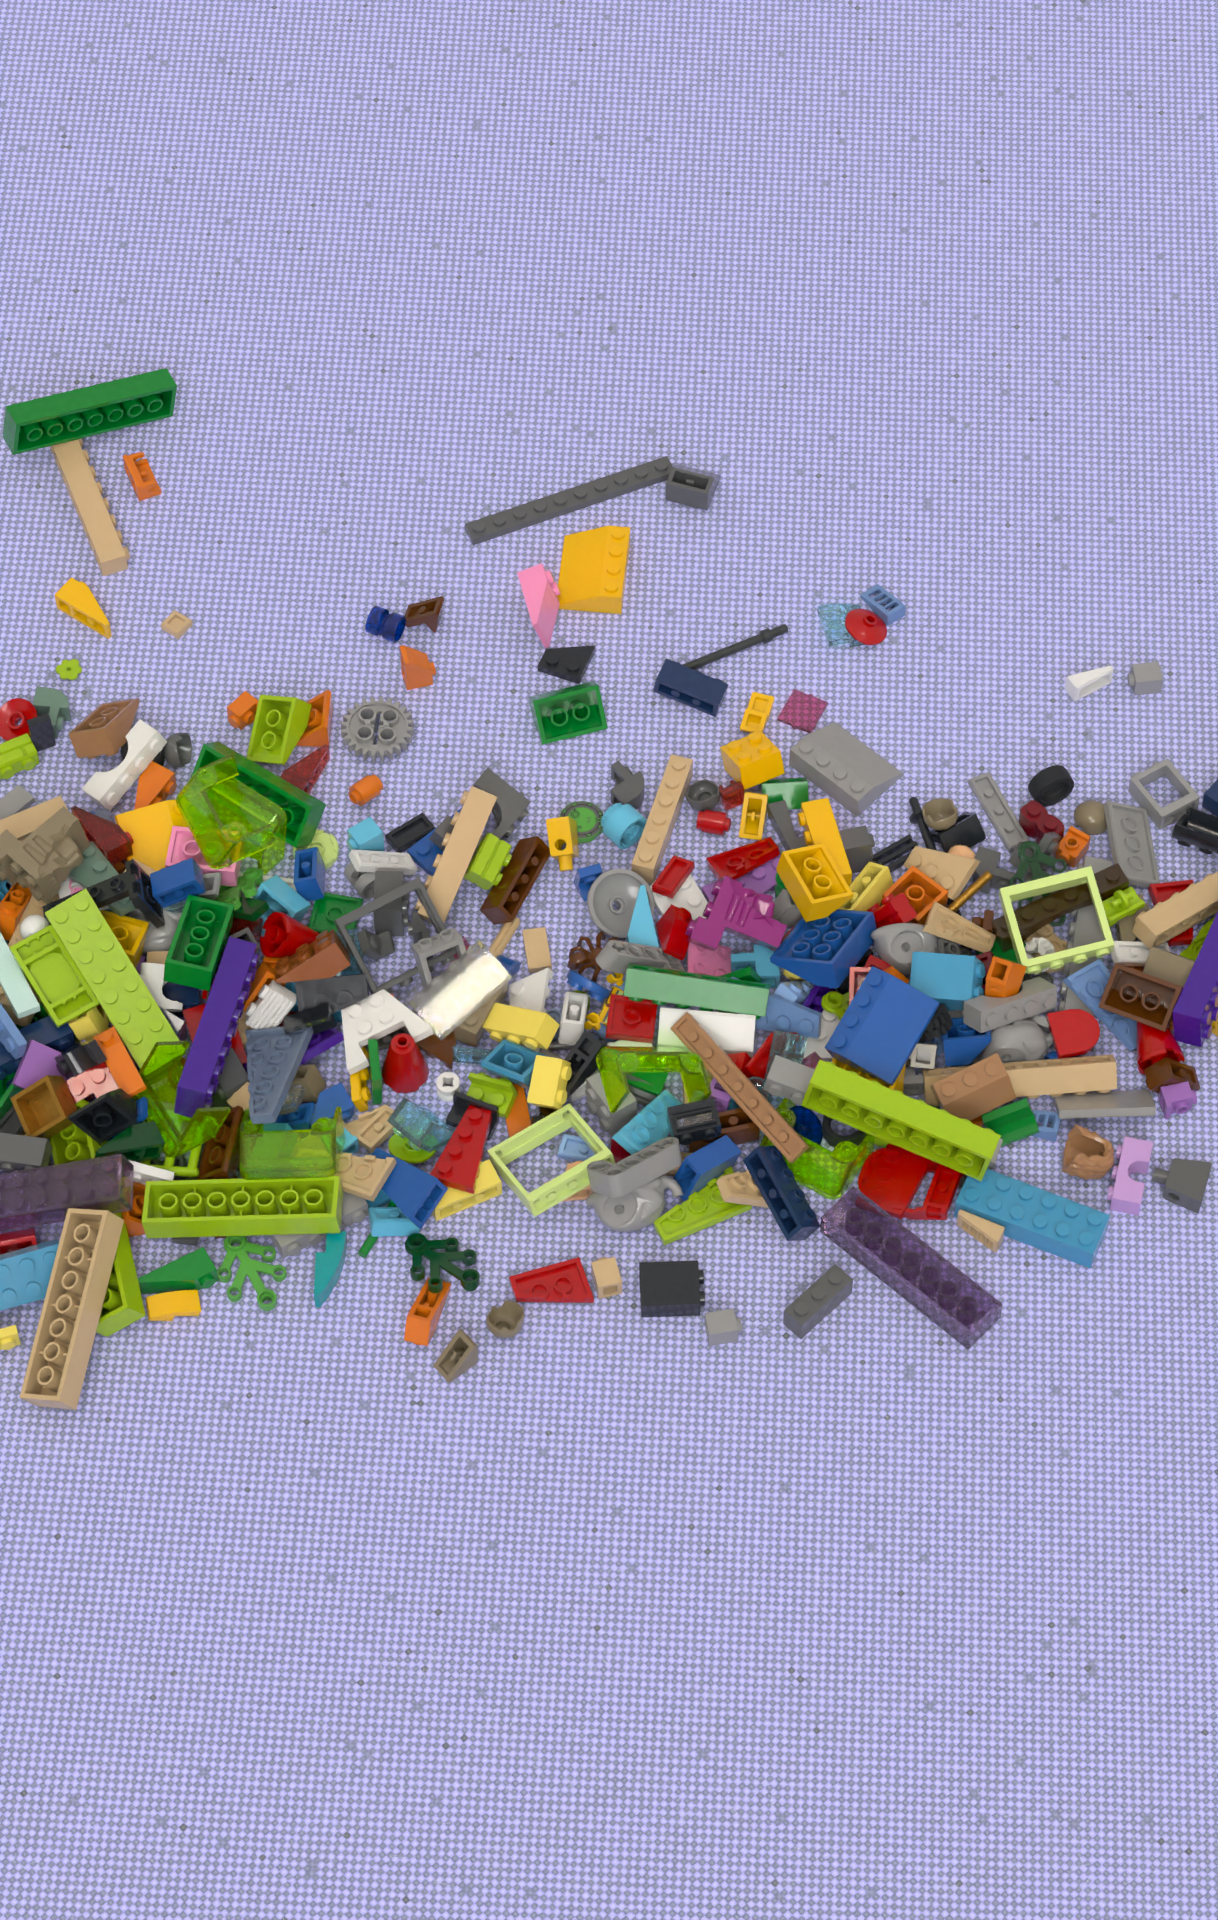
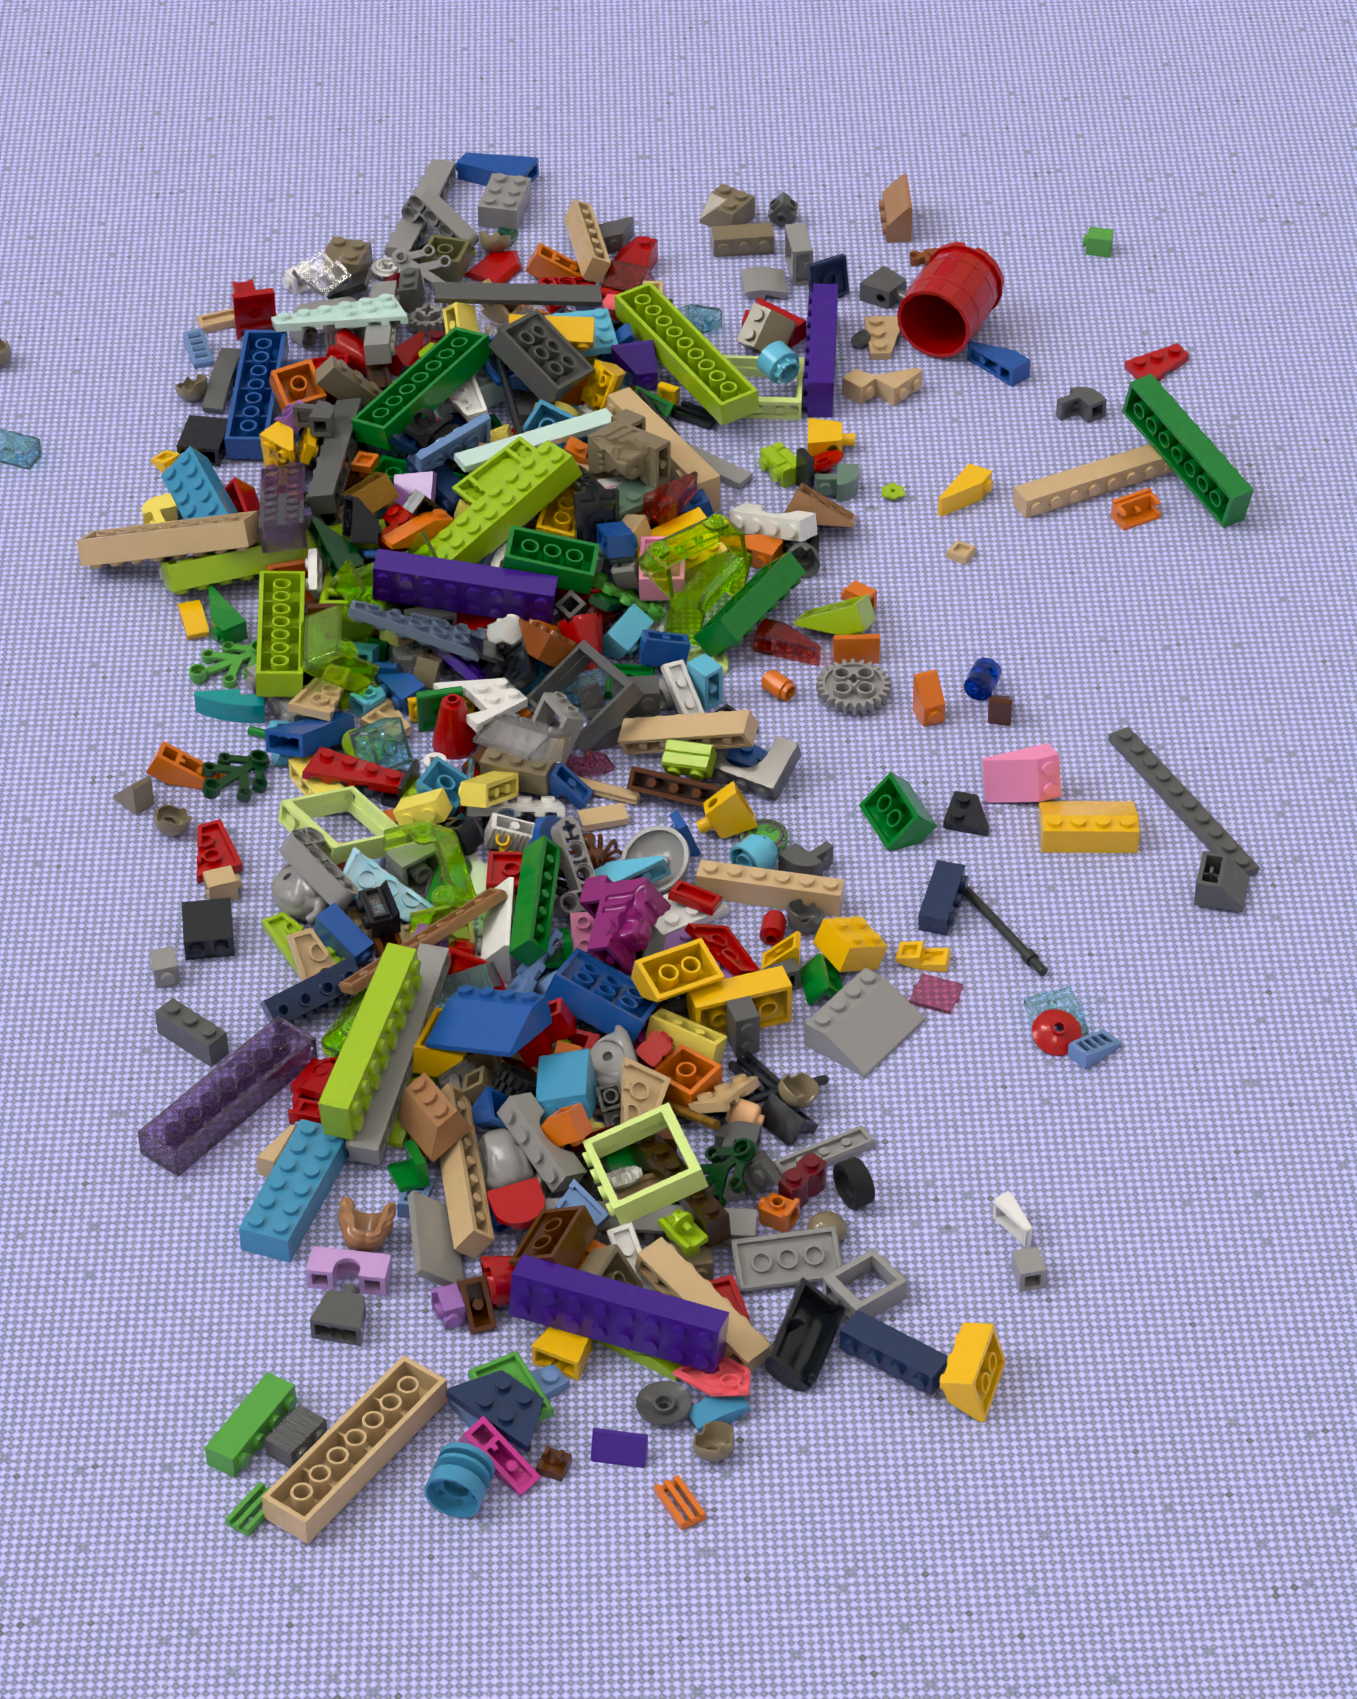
camera: 85 degrees right, 15 degrees down
(732, 795) = (807, 937): clear red tile -> none

